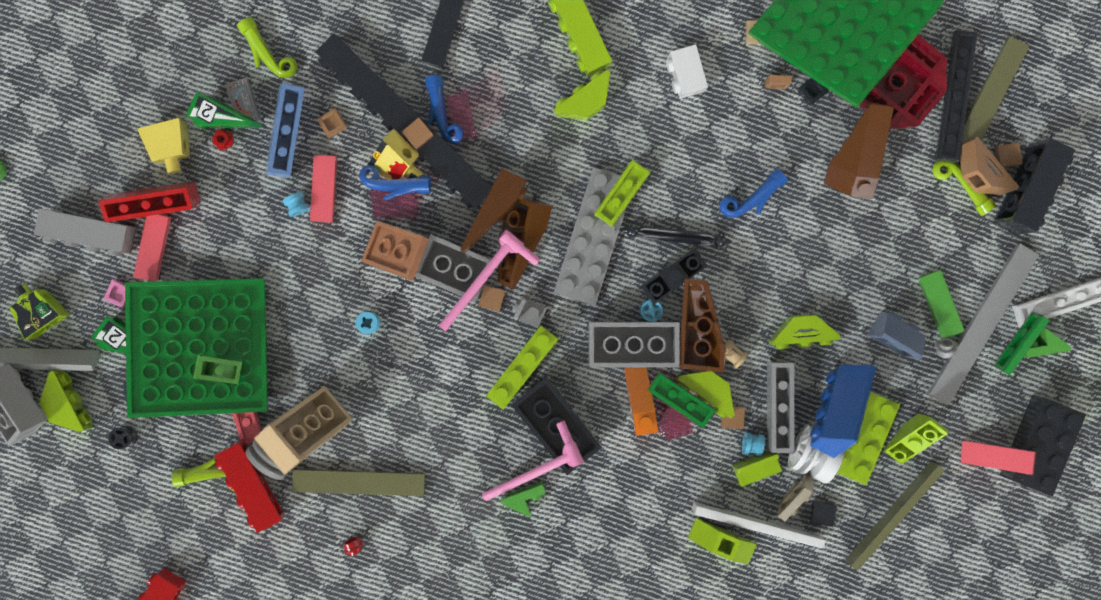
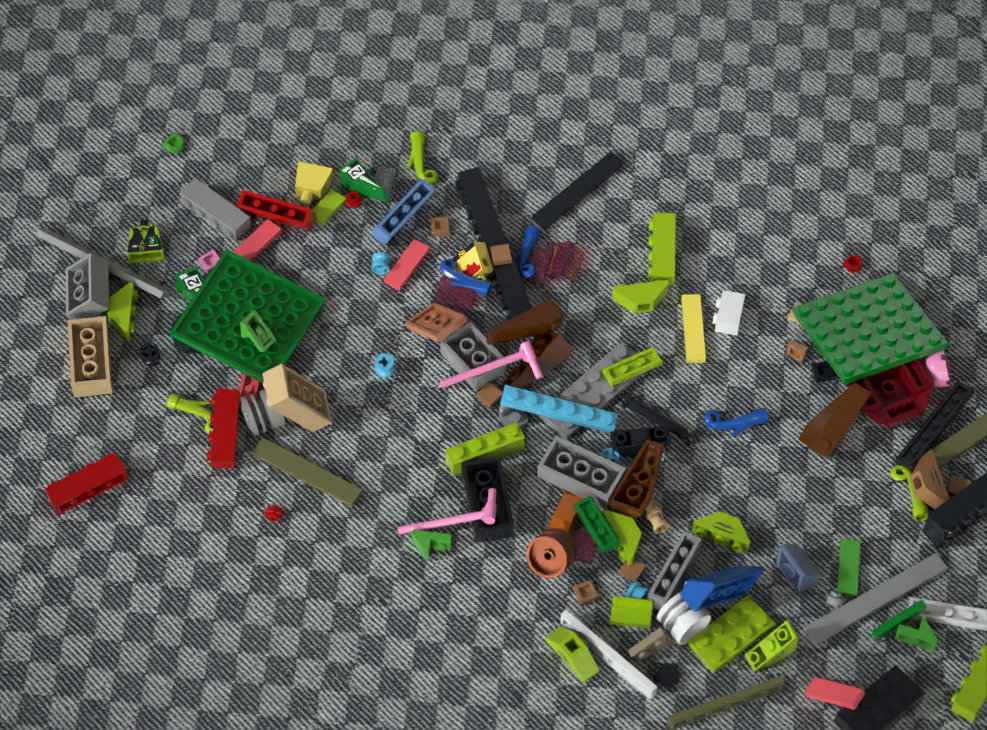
camera: 25 degrees right, 30 degrees down
(62, 478) = (90, 356): none -> tan brick
(201, 162) = (328, 207): none -> lime tile
(486, 98) = (566, 261): none -> clear pink panel
(573, 285) = (558, 409): none -> medium azure plate
(653, 456) = (551, 553): none -> copper wheel
(657, 108) = (693, 328): none -> light yellow tile
(701, 466) = (585, 592): none -> medium nougat tile
(938, 32) = (937, 369): none -> bright pink cylinder

